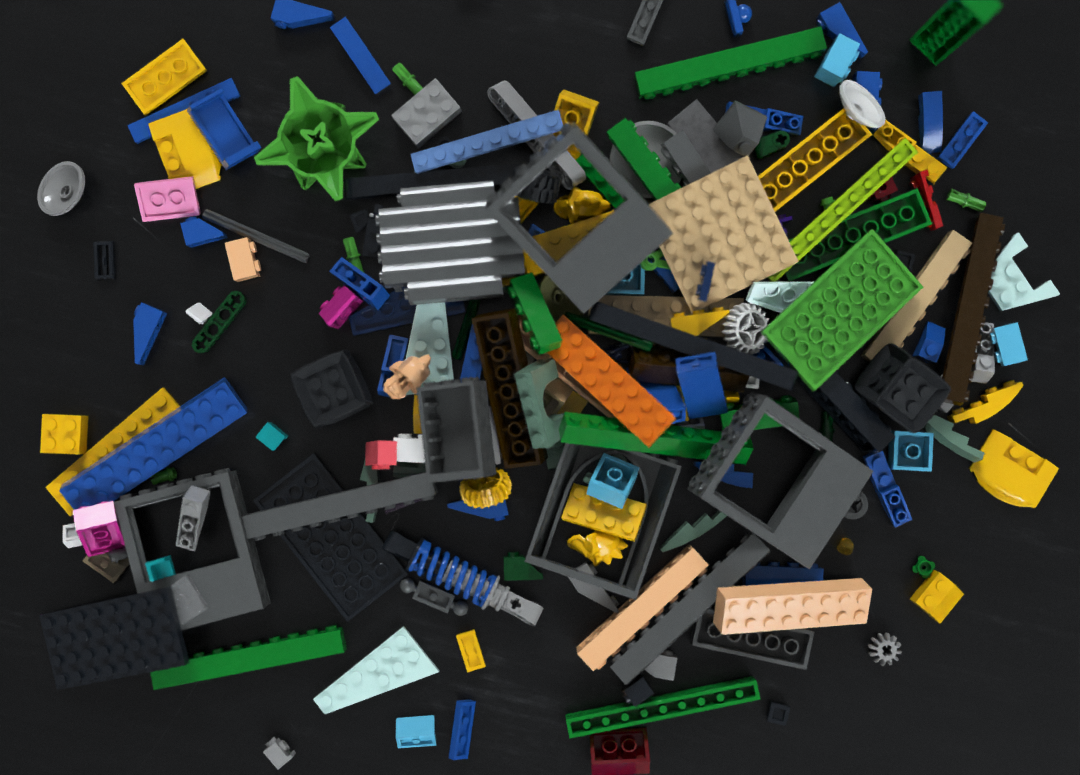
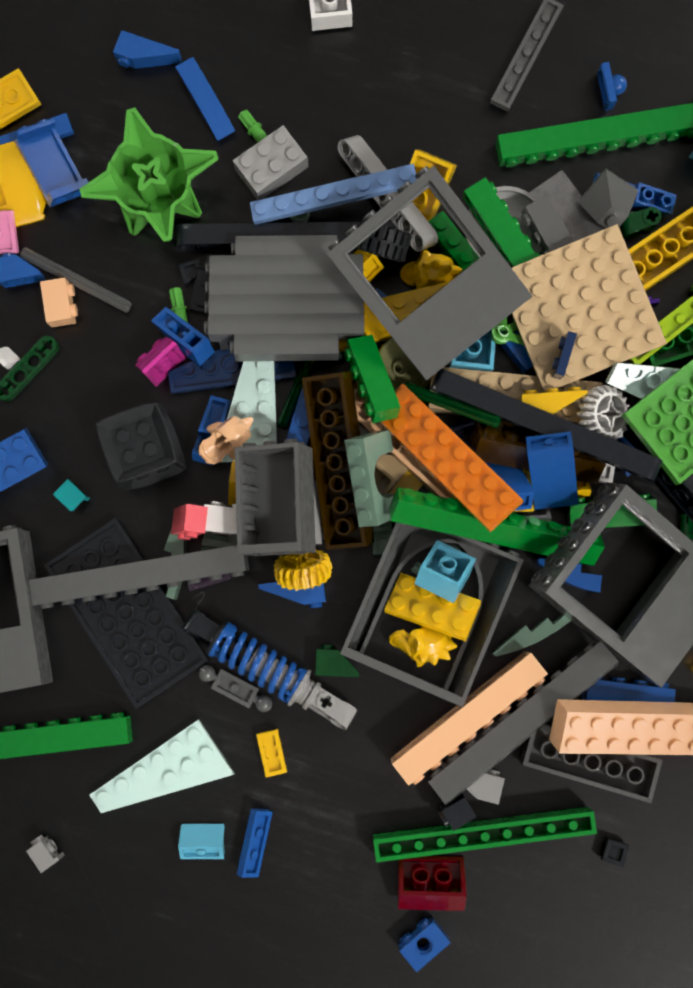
camera: 10 degrees right, 5 degrees down
(593, 592) = (414, 695): light grey slope -> none

